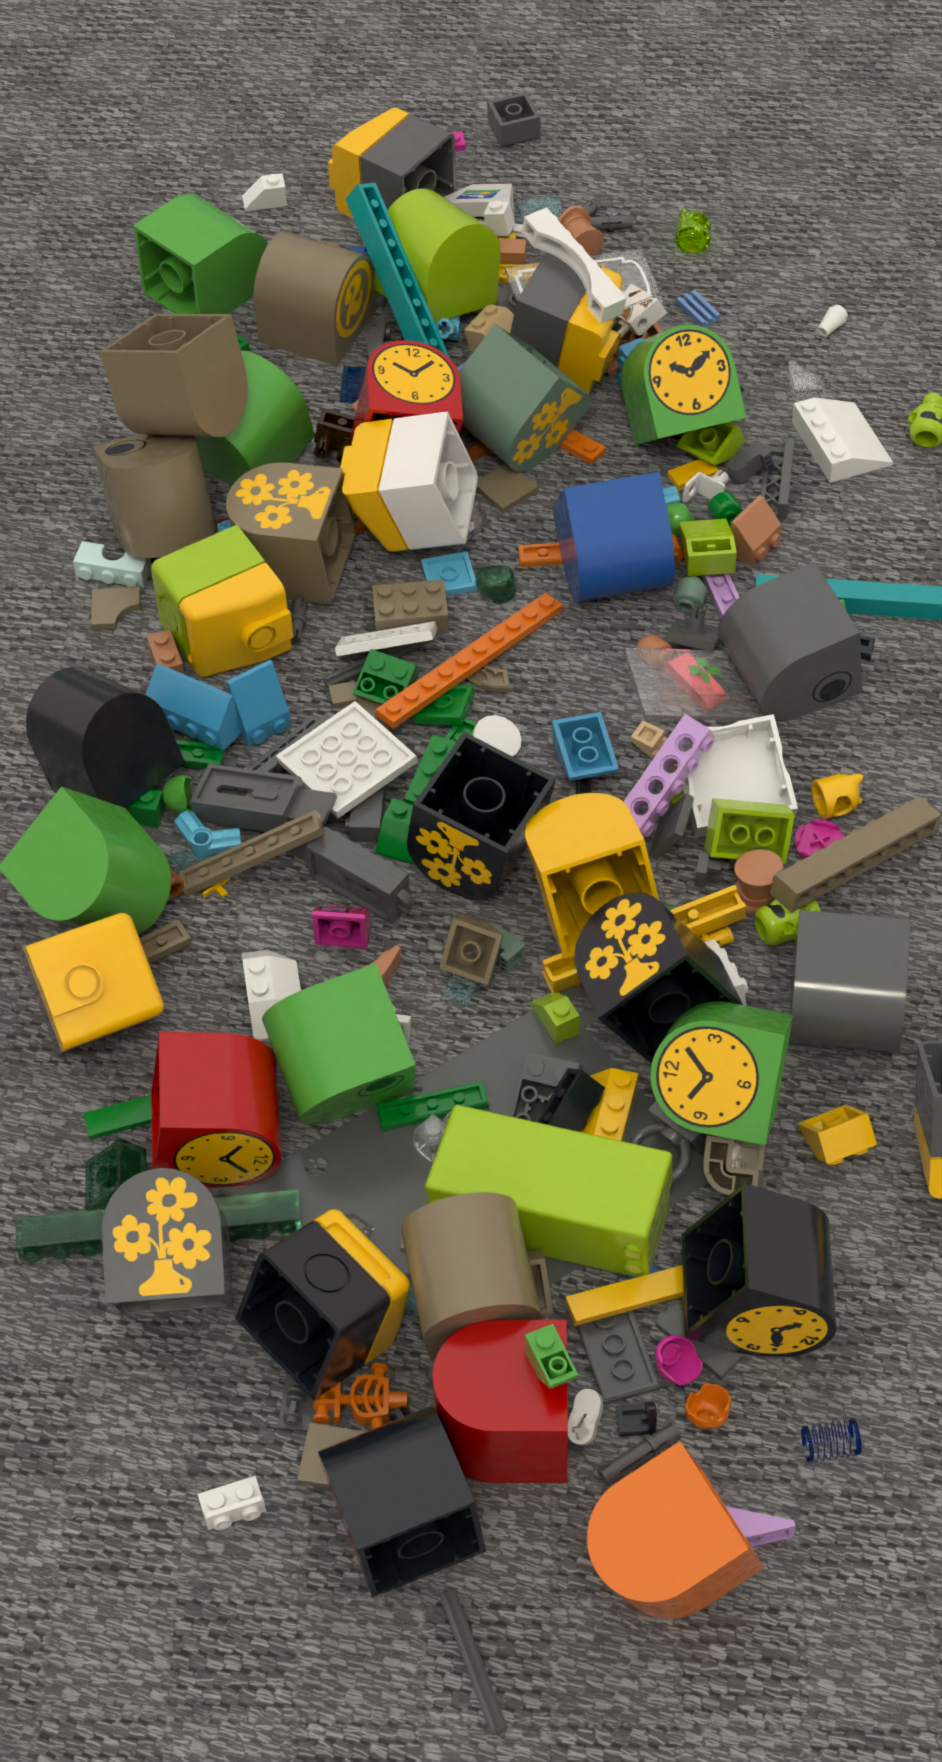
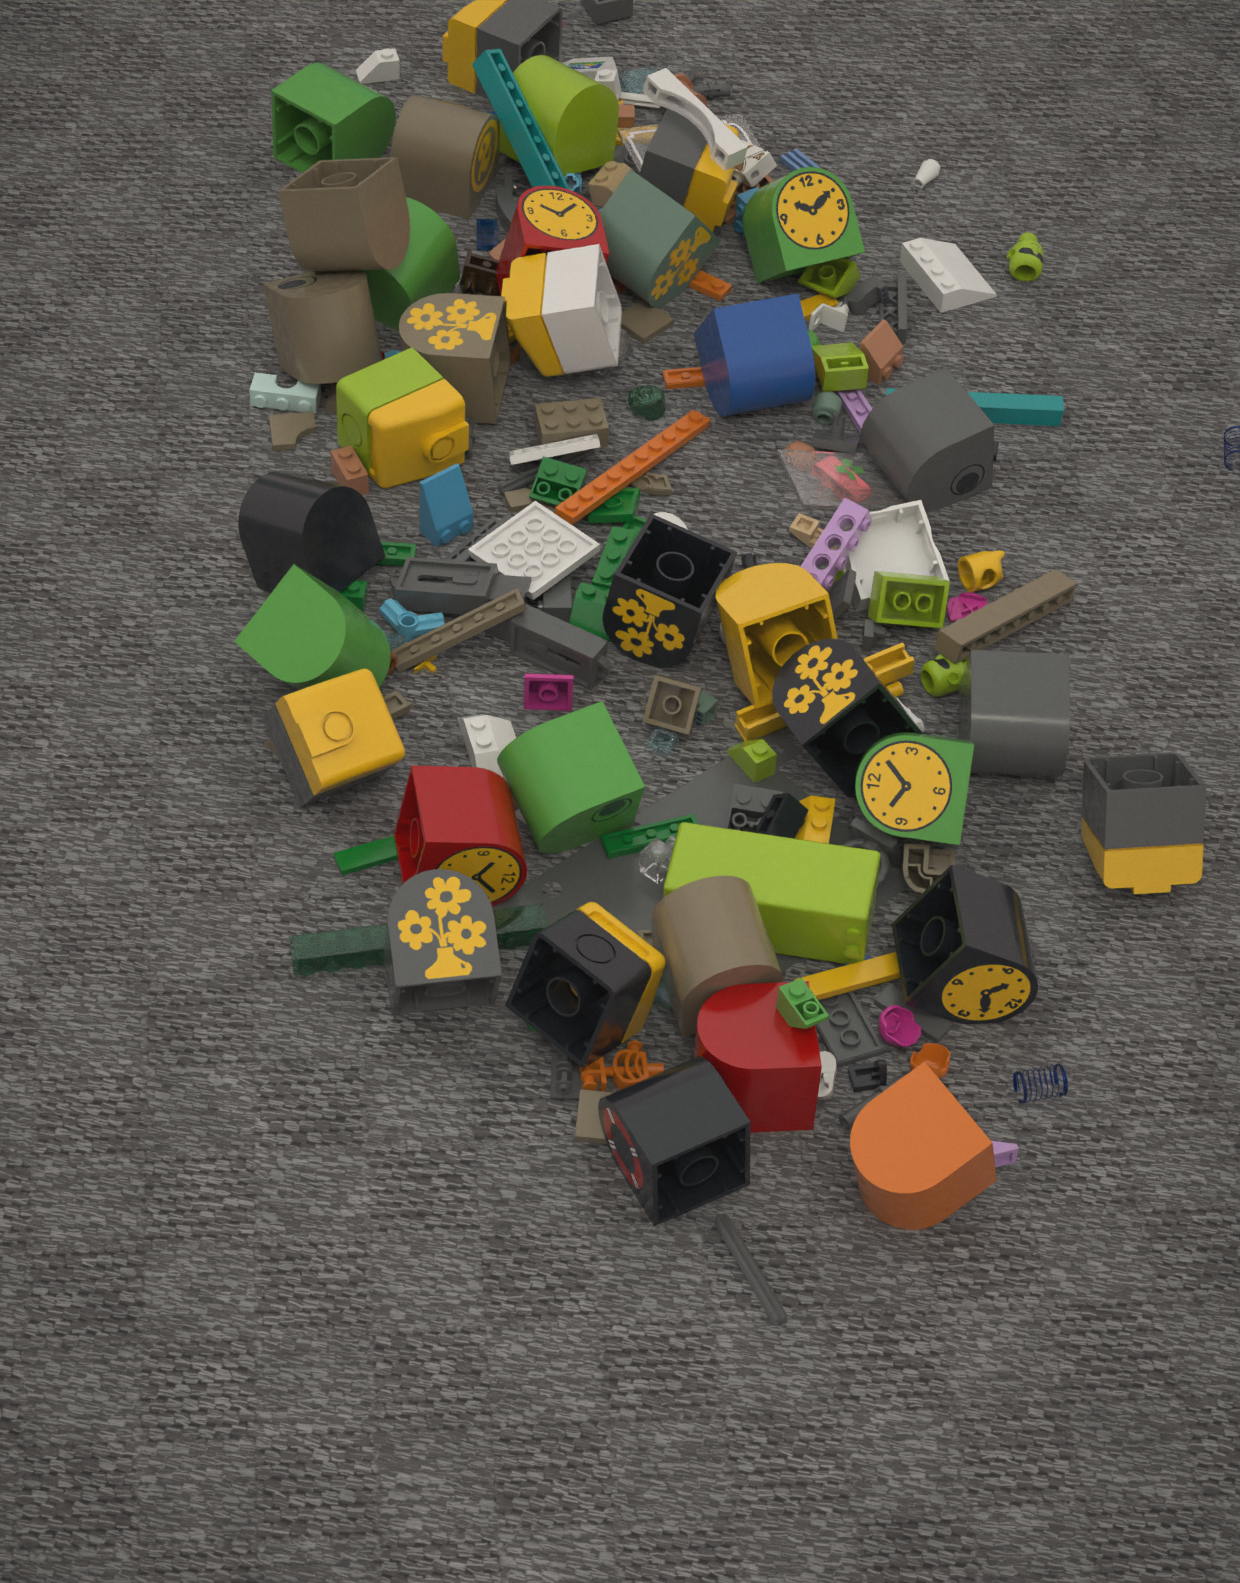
camera: 10 degrees left, 5 degrees down
(110, 1170) = (369, 898): clear green slope -> none
(177, 793) = (380, 584): bright green hair -> none
(195, 707) = (397, 512): dark azure slope -> none
(232, 1503) = (519, 1158): white bracket -> none
(455, 571) = (608, 390): medium azure tile -> none
(583, 746) = (748, 534): dark azure slope -> none
(693, 231) = (788, 97): clear neon green piece -> none
(724, 506) = (848, 332): green head -> none
(755, 878) = (920, 638): nougat hat -> none
(804, 382) = (907, 226): clear slope -> none
(838, 1134) = (1017, 844): yellow slope -> none

